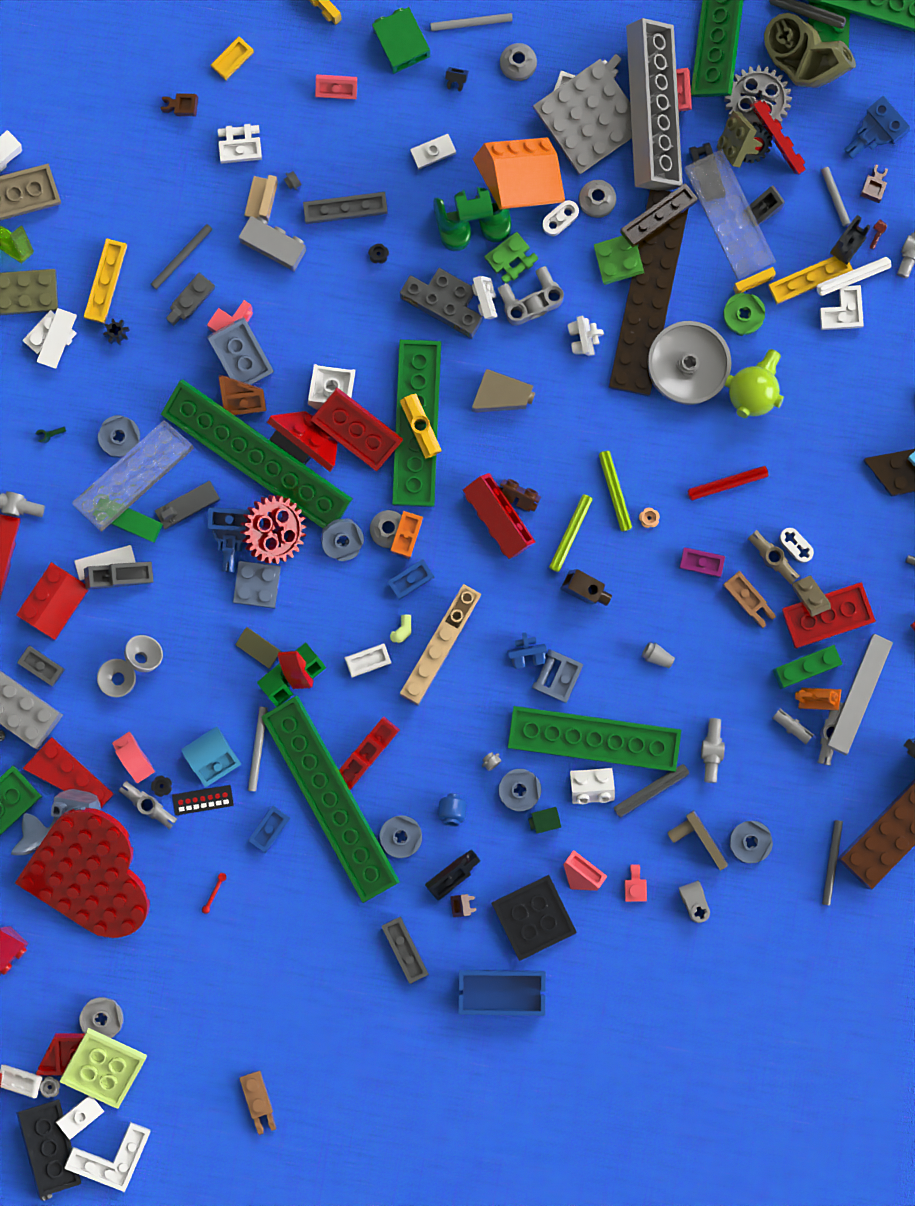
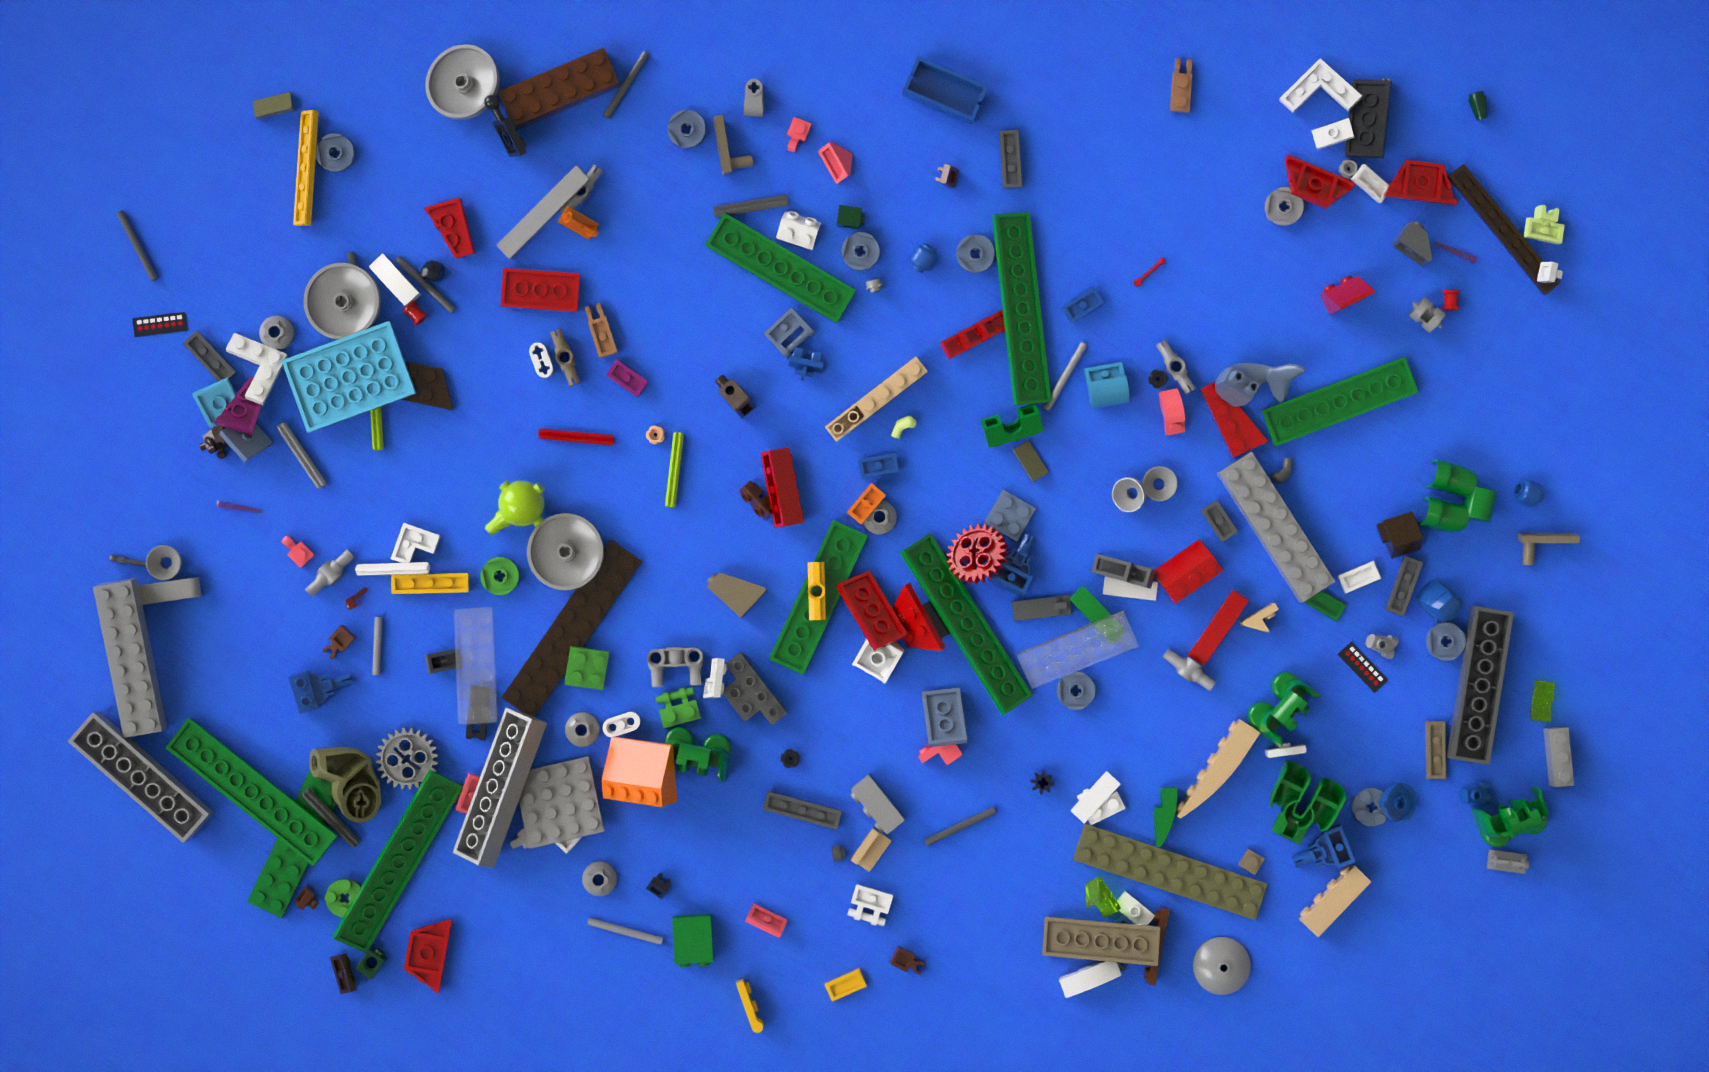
camera: 160 degrees left, 5 degrees up
(50, 434) = (1132, 717): dark green hand -> none
(86, 874) = (1248, 326): red plate -> none
(103, 1068) = (1298, 163): yellowish green plate -> none
(105, 281) = (1033, 831): yellow plate -> none
(190, 299) = (967, 786): dark grey hinge -> none
(203, 800) = (1127, 353): black sticker -> none
(241, 397) = (958, 680): dark orange wing -> none
(294, 670) = (1008, 426): red slope -> none
(344, 528) = (922, 532): sand blue plate -> none
(368, 660) = (942, 412): white plate -> none
(433, 151) = (706, 829): white plate -> none
(452, 875) = (945, 204): black hinge -> none
(534, 917) = (892, 141): black plate -> none
(570, 533) = (727, 449): lime axle -> none
(583, 328) = (642, 609): white hips -> none
(657, 655) = (699, 317): light grey cone -> none
(659, 215) = (537, 689): plate -> none
(712, 750) = (686, 217): light grey pin -> none
(743, 140) = (436, 724): olive plate -> none
(754, 281) = (479, 600): yellow tile -> none
(783, 143) = (406, 723): red plate -> none
(793, 726) = (610, 210): light grey pin -> none
(807, 667) = (576, 253): green arch -> none
(811, 595) = (548, 311): dark tan plate -> none
(850, 241) = (383, 600): black hinge -> none

